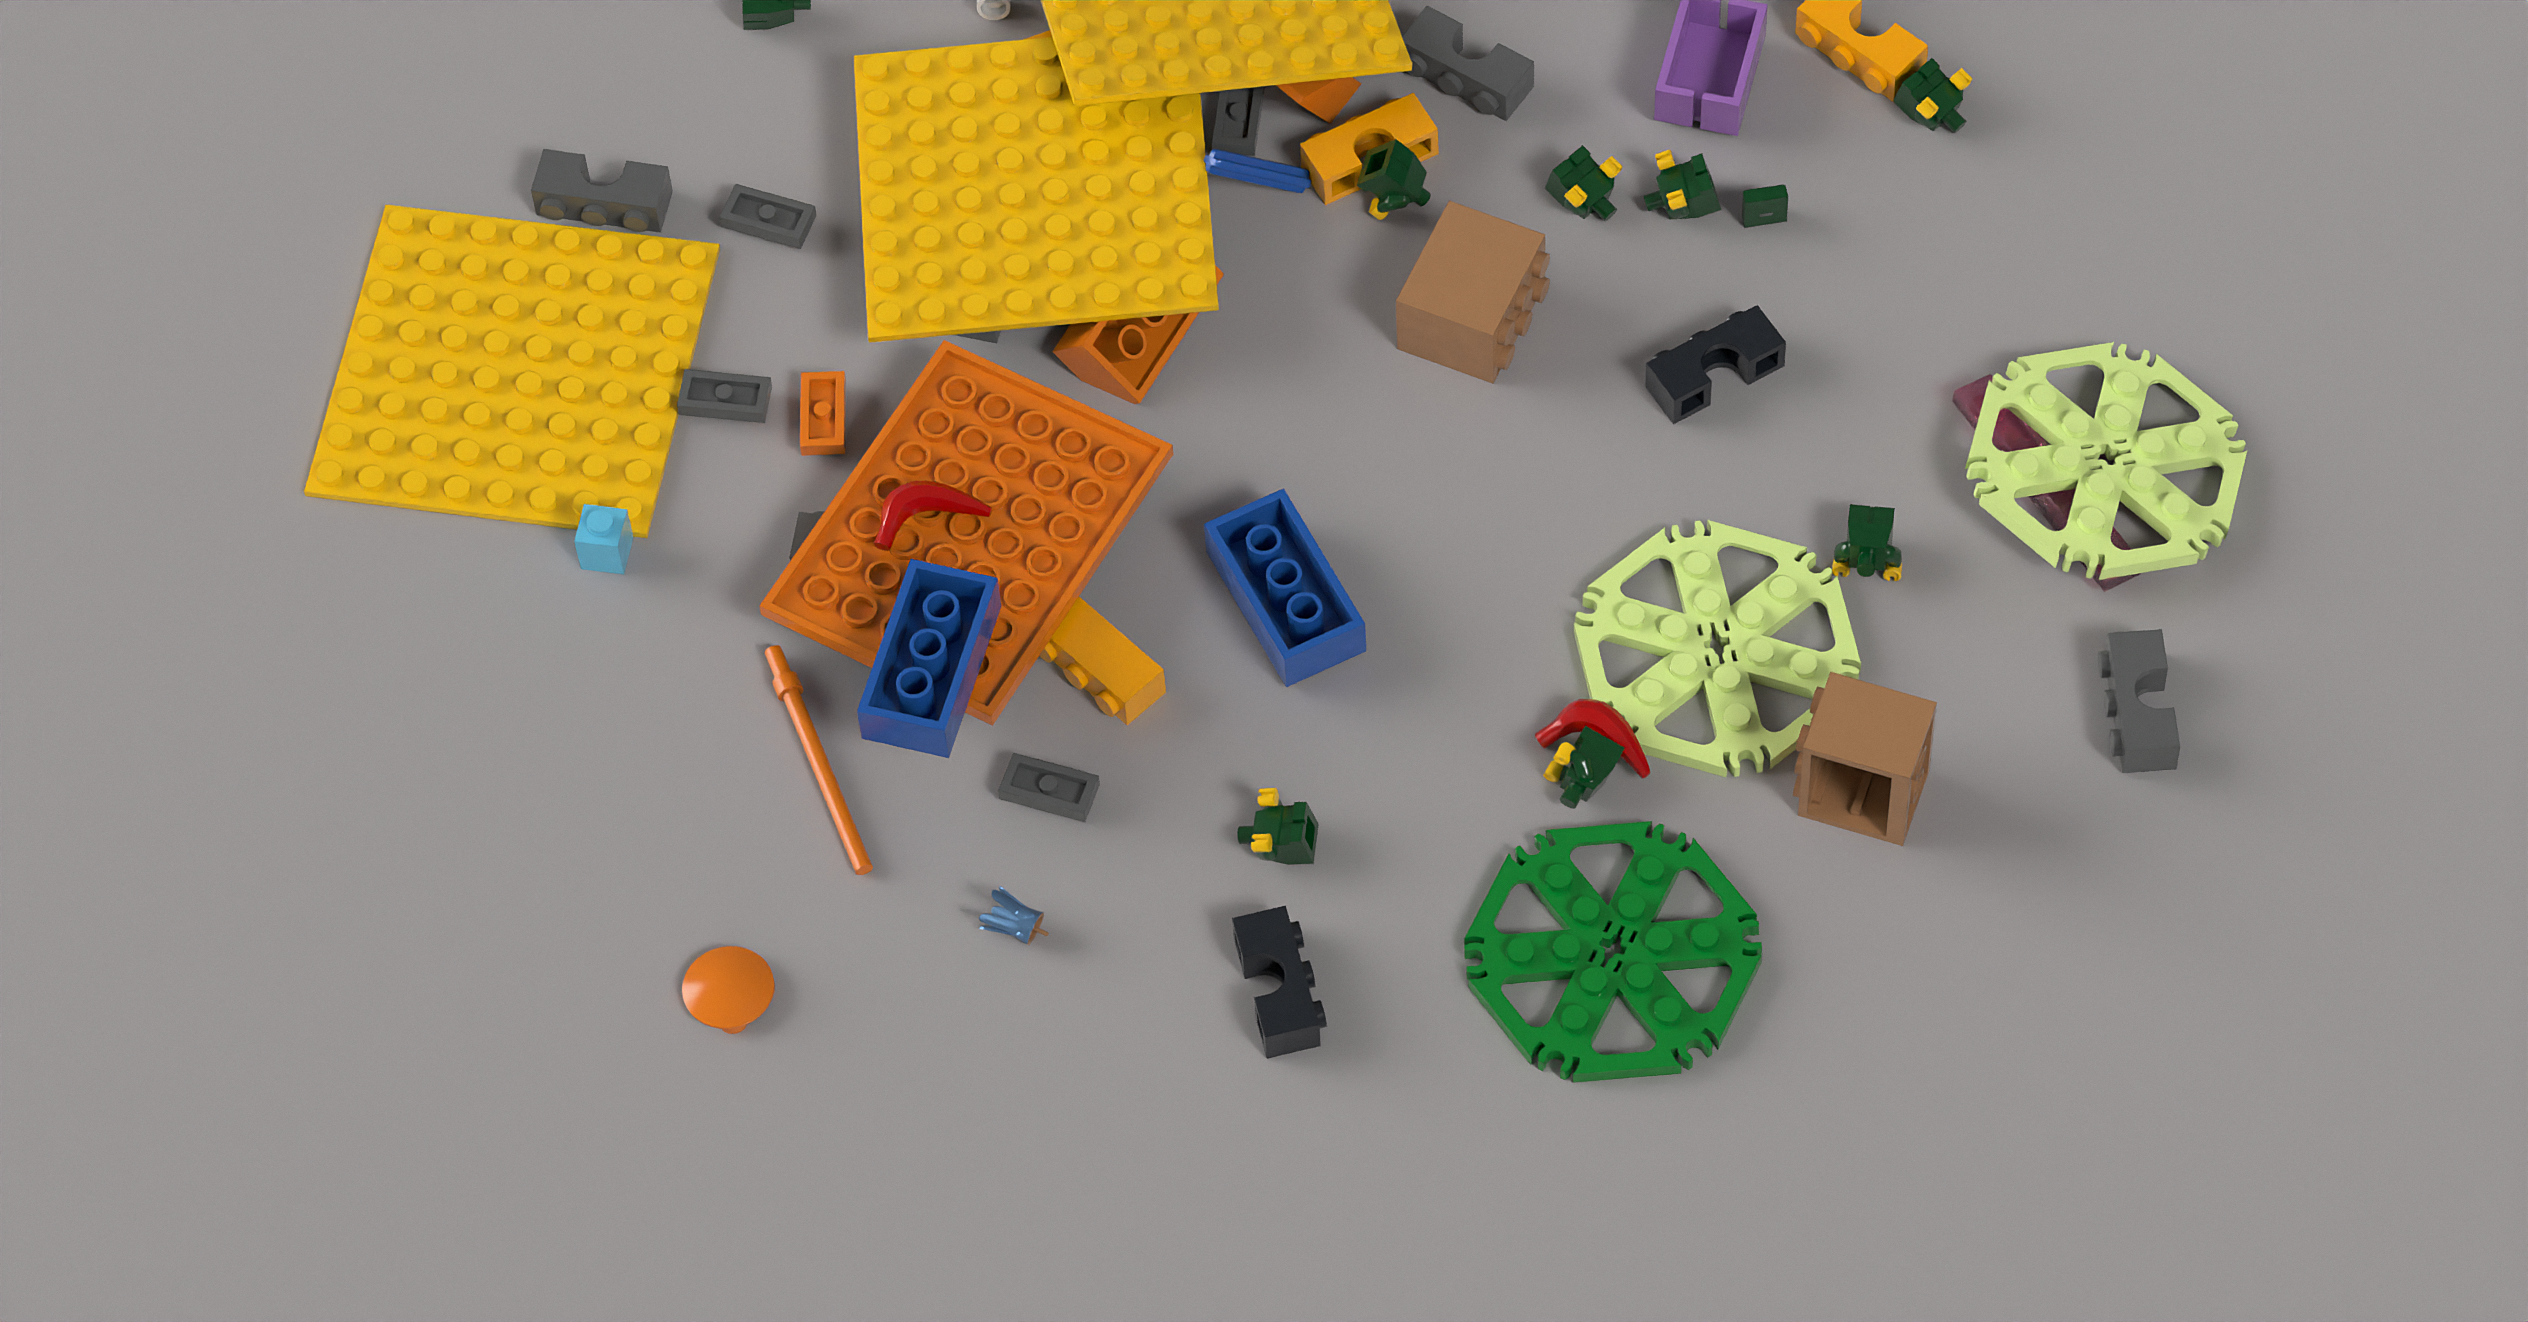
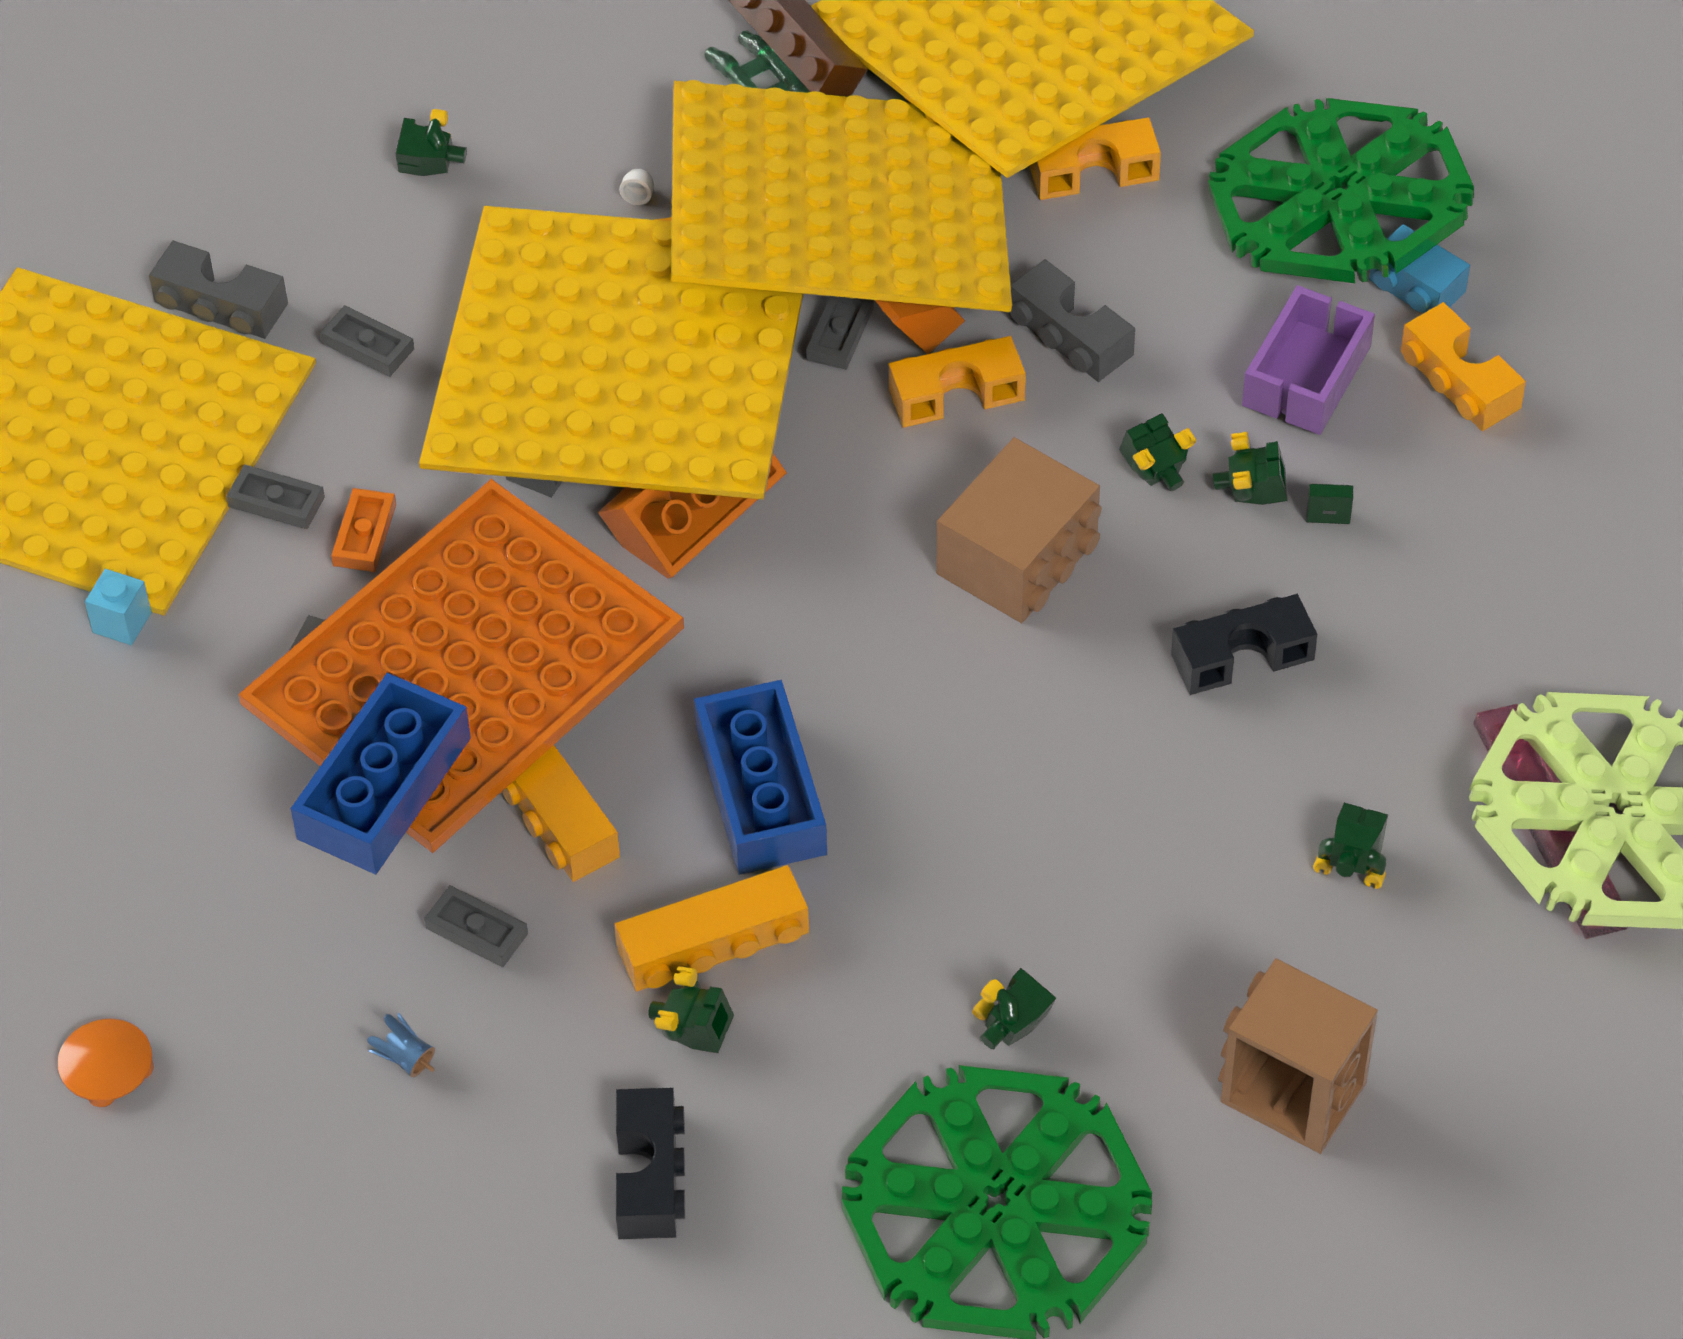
camera: 10 degrees right, 5 degrees down
(789, 690) = (253, 784): orange bar -> none
(922, 497) = (422, 620): red piece -> none
(1257, 170) = (840, 380): blue axle -> none
(1277, 745) = (712, 928): none -> light orange brick
(1393, 176) = (973, 412): dark green piece -> none
(1602, 719) = (1043, 967): red piece -> none
(1686, 654) = (1145, 917): yellowish green plate -> none
(1933, 97) = (1520, 432): dark green piece -> none
(2142, 735) = (1594, 1090): dark grey arch -> none

